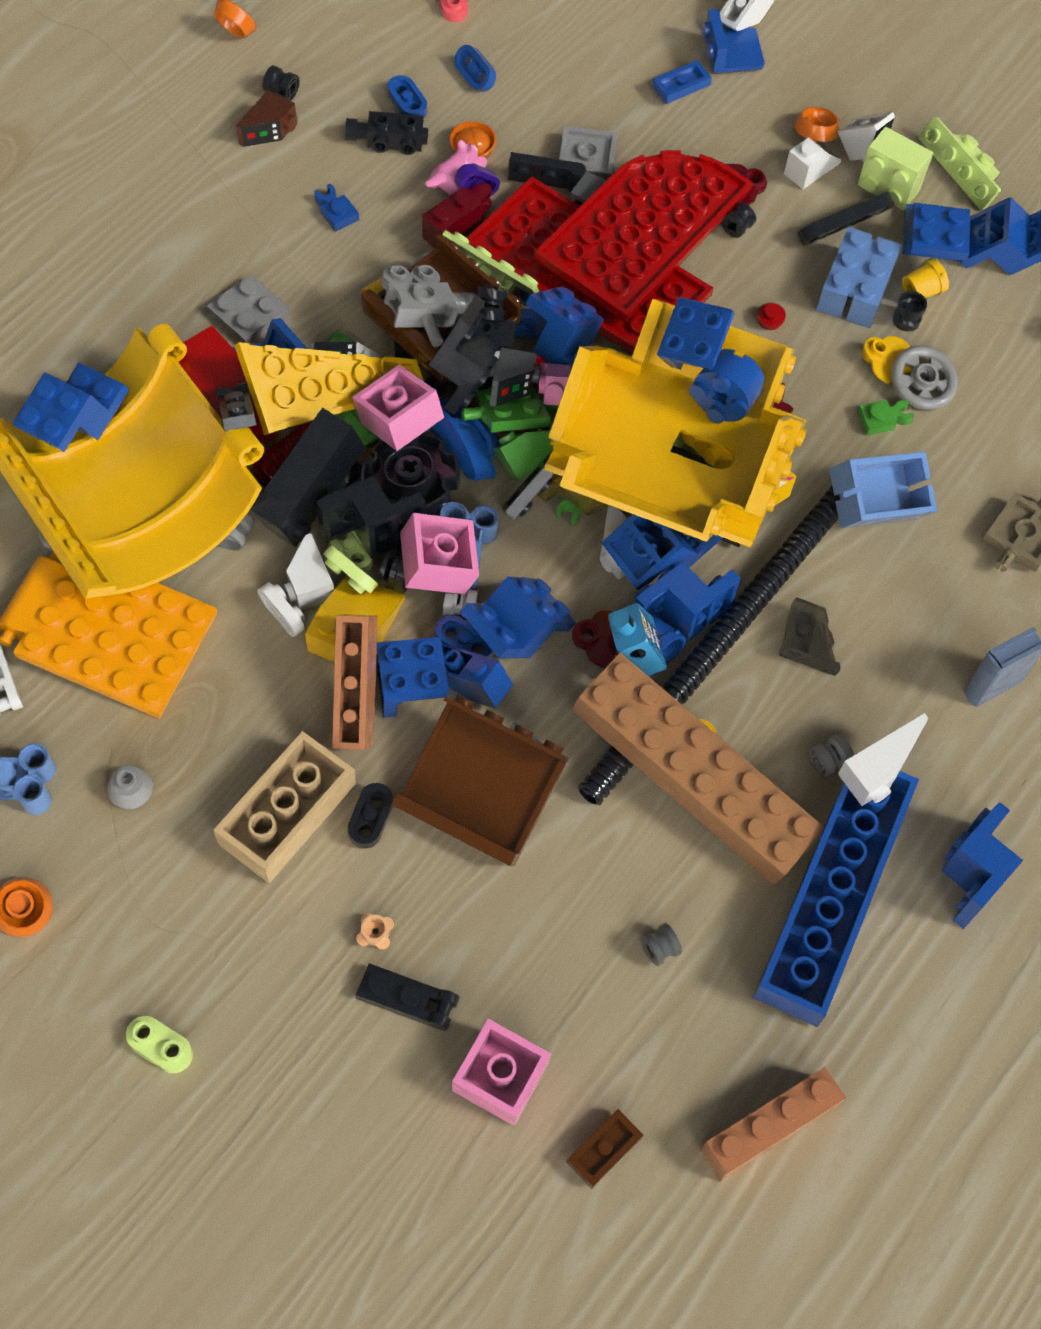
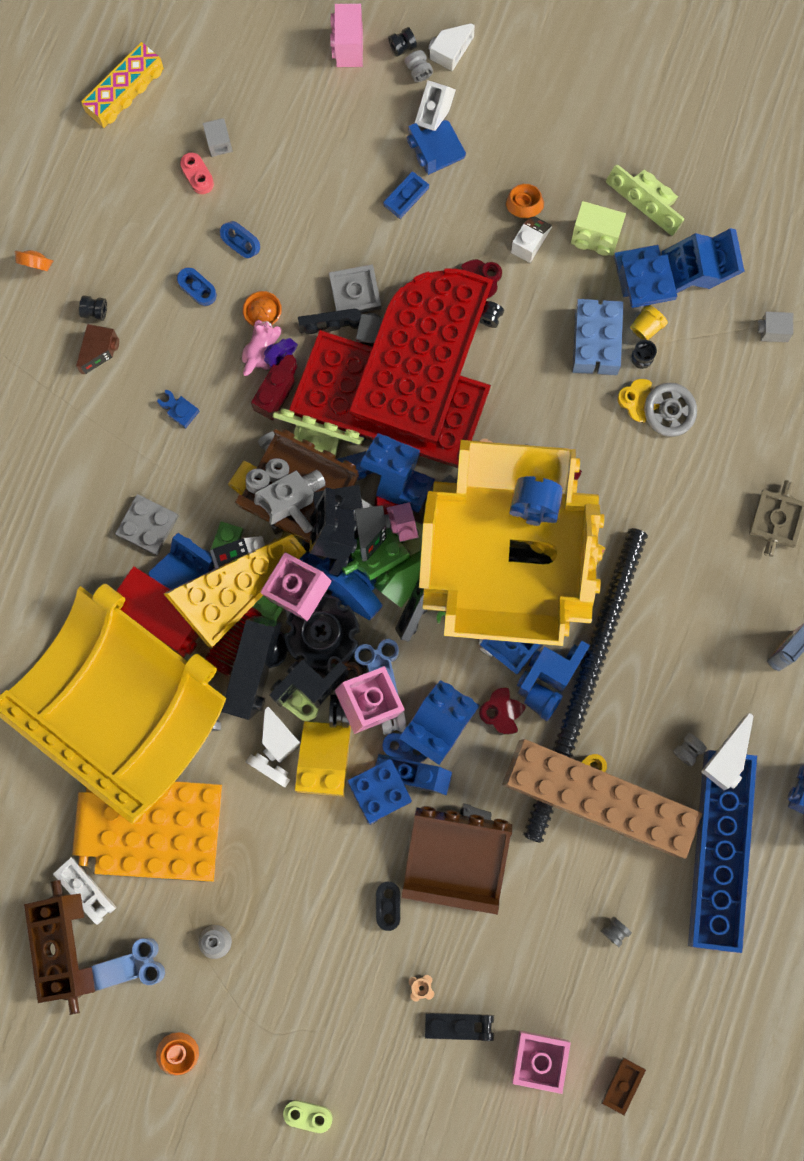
camera: 10 degrees left, 15 degrees up
(63, 408) = (54, 667): blue bracket -> none
(236, 407) = (183, 641): black plate -> none
(285, 806) = (329, 924): tan brick -> none
(339, 562) = (299, 723): yellowish green plate -> none
(354, 681) = (345, 819): nougat brick -> none
(389, 131) = (199, 324): black brick -> none
(493, 300) = (334, 476): black wheel -> none
(633, 630) = (530, 717): dark azure torso -> none
(695, 334) = (502, 472): blue bracket -> none
(771, 316) = (541, 392): red plate -> none
(772, 1124) = (727, 1033): nougat brick -> none
(809, 638) = (647, 660): clear smoke wing -> none
(845, 218) = (572, 284): black beam -> none
(861, 132) = (565, 203): white slope -> none
(878, 492) = (667, 529): medium blue piece -> none
(881, 418) = (647, 453): bright green plate -> none

